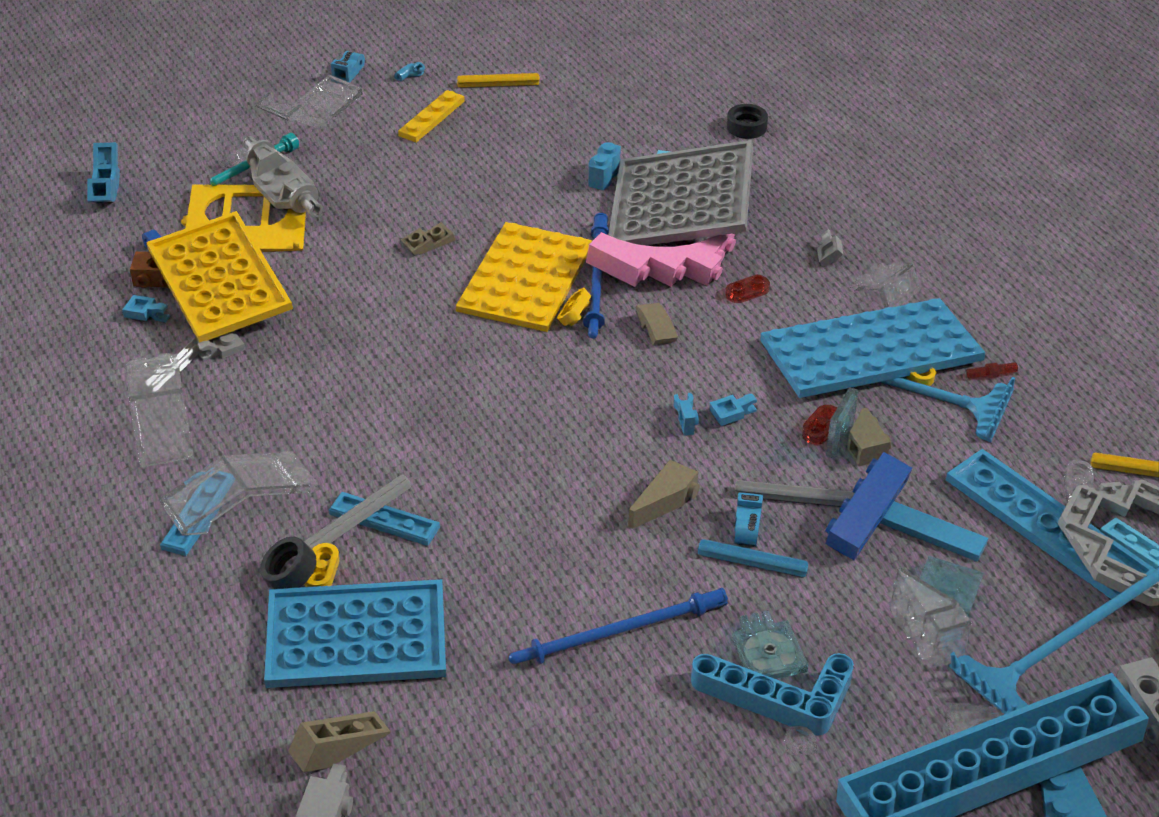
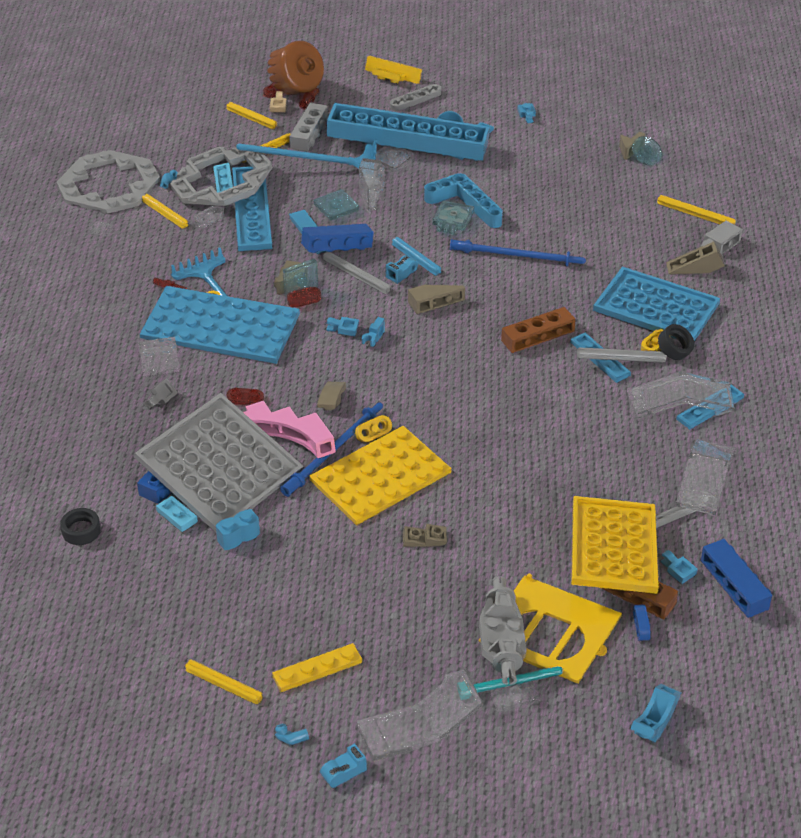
camera: 145 degrees left, 0 degrees up
(76, 313) = (736, 578): none -> blue brick
(489, 509) = (538, 329): none -> dark orange brick

